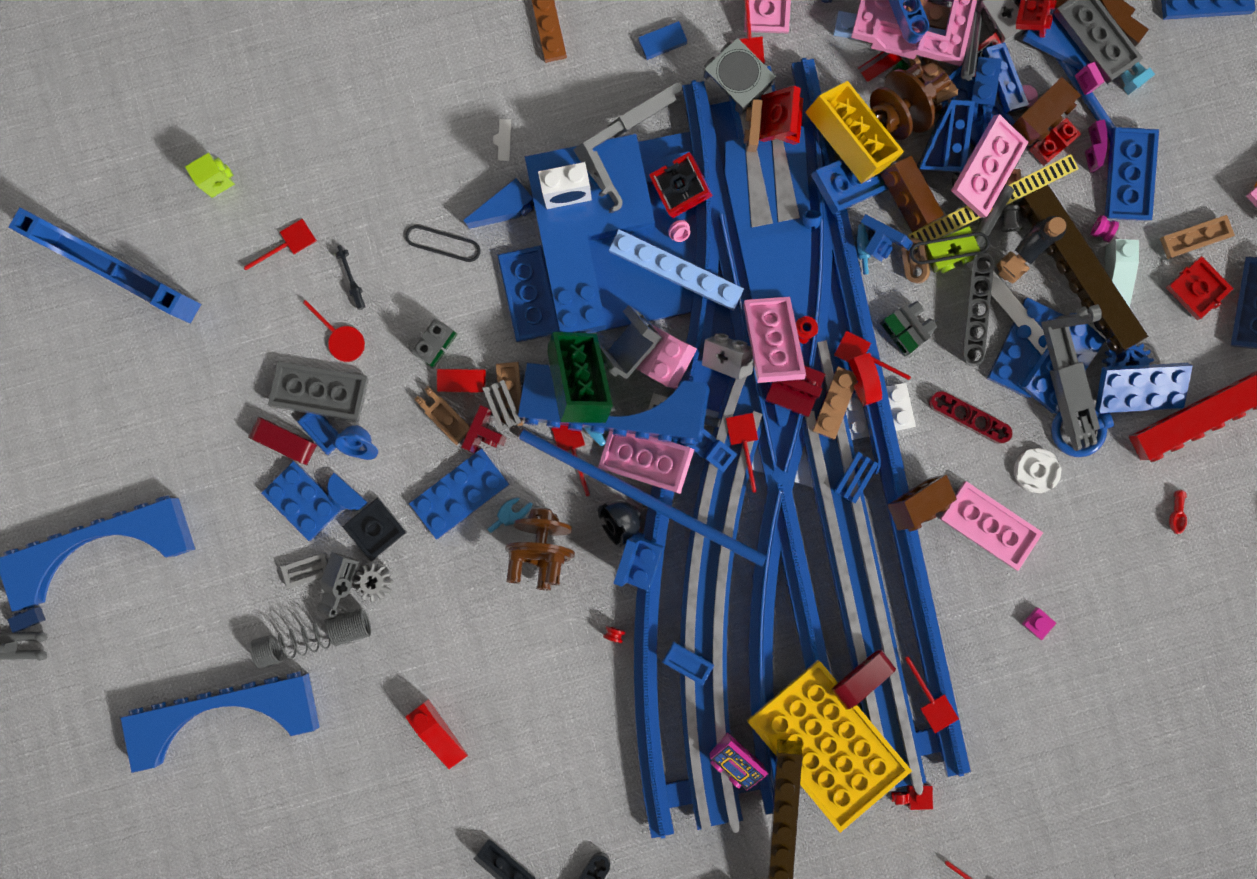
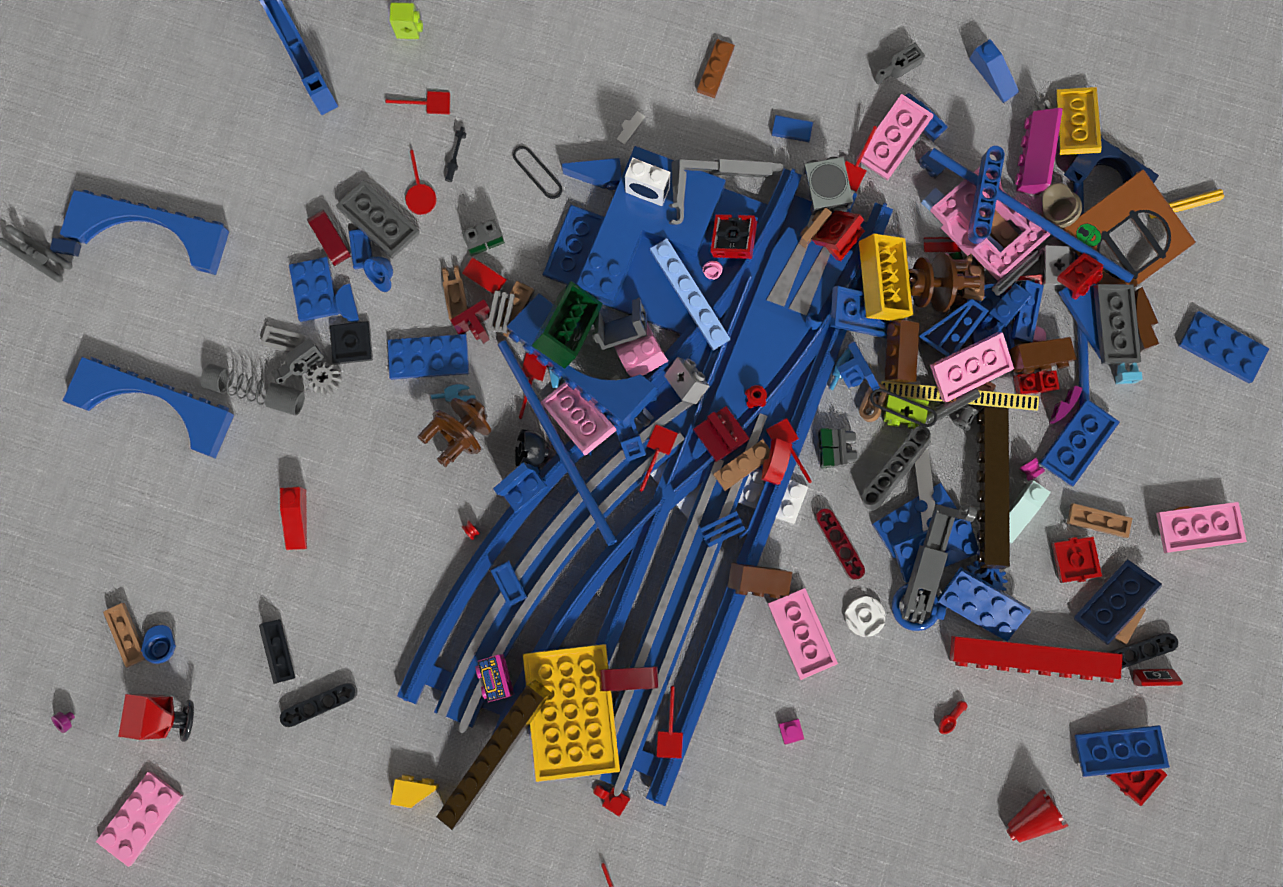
camera: 30 degrees right, 5 degrees down
(774, 339) = (726, 387): bright pink plate -> none
(1033, 244) = (969, 444): piece -> none
(1089, 78) = (1090, 351): dark pink plate -> none

